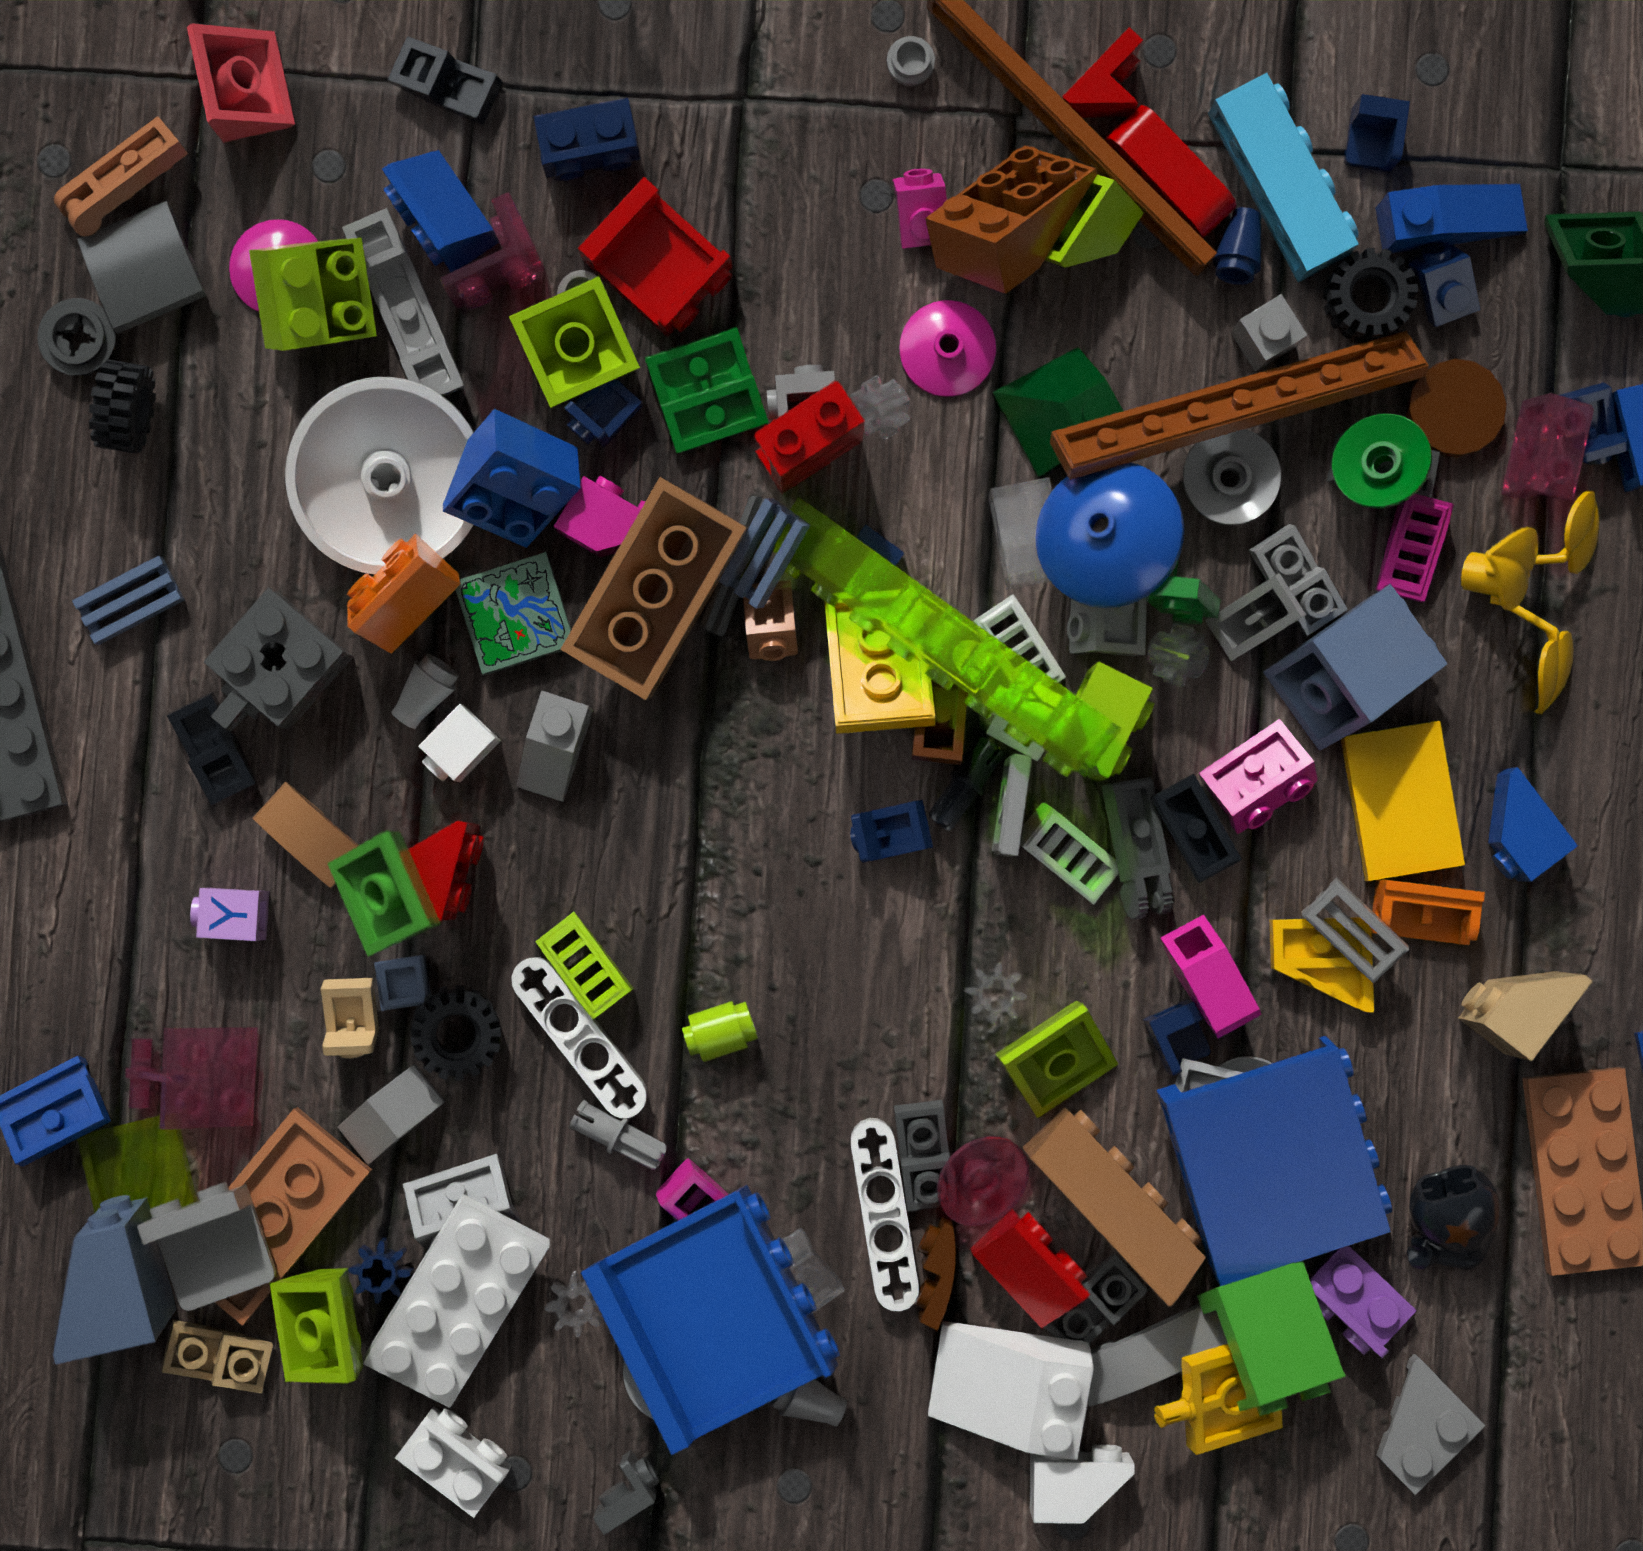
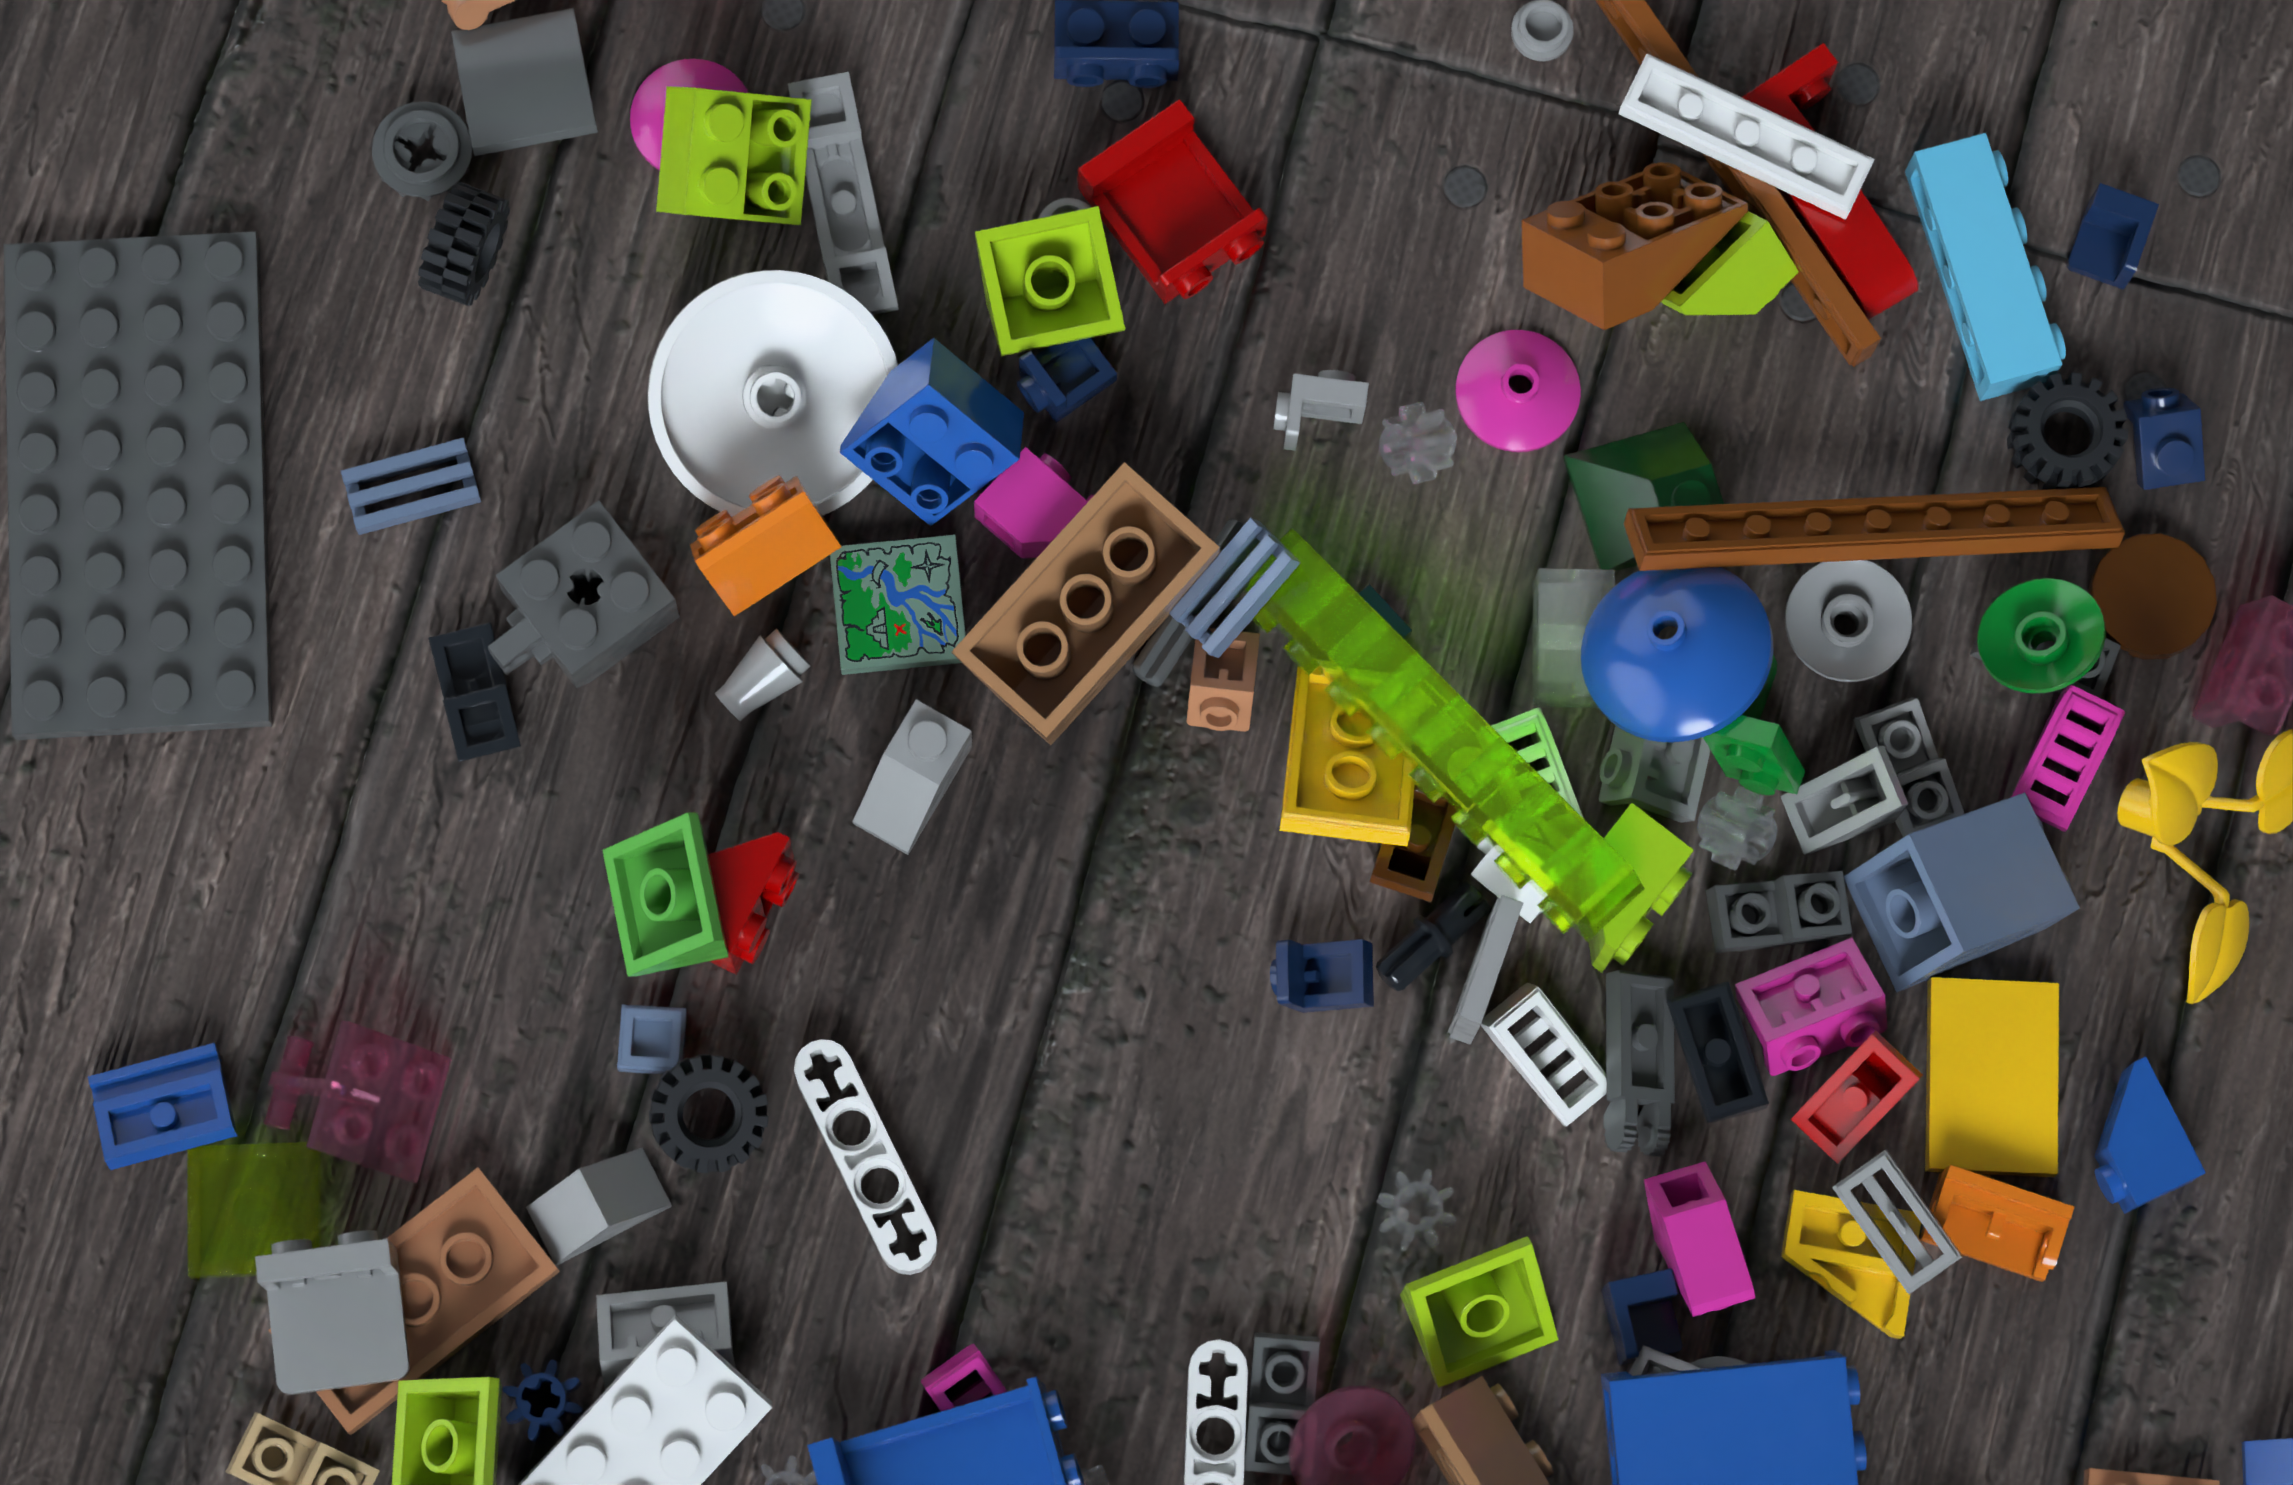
camera: 10 degrees right, 10 degrees down
(114, 1285) = (199, 1334): sand blue slope -> none
(230, 914) = (453, 903): lavender brick -> none
(304, 831) = (568, 821): medium nougat slope -> none
(349, 1017) = (576, 1065): tan bracket -> none
(447, 217) = (915, 88): blue slope -> none
(457, 745) = (791, 751): white brick -> none
(511, 266) = (983, 173): clear pink bracket -> none
(580, 991) = (914, 1112): lime slope -> none
(619, 1136) = (889, 1292): light grey axle -> none
(706, 390) = (1201, 378): green slope -> none
(719, 1030) = (1049, 1183): lime brick -> none
(809, 436) = (1322, 456): red panel -> none
(917, 197) = (1515, 195): dark pink bracket -> none
(1084, 114) = (1746, 136): none -> white tile
(1220, 709) = (1779, 912): none -> dark grey slope
(1240, 248) = (1913, 342): dark blue cone -> none
(1268, 333) = (1928, 452): light grey brick -> none
(1306, 841) = (1856, 1097): none -> red slope
(1449, 215) = (2187, 353): blue slope -> none
(1522, 1010) = (2091, 1365): tan slope -> none

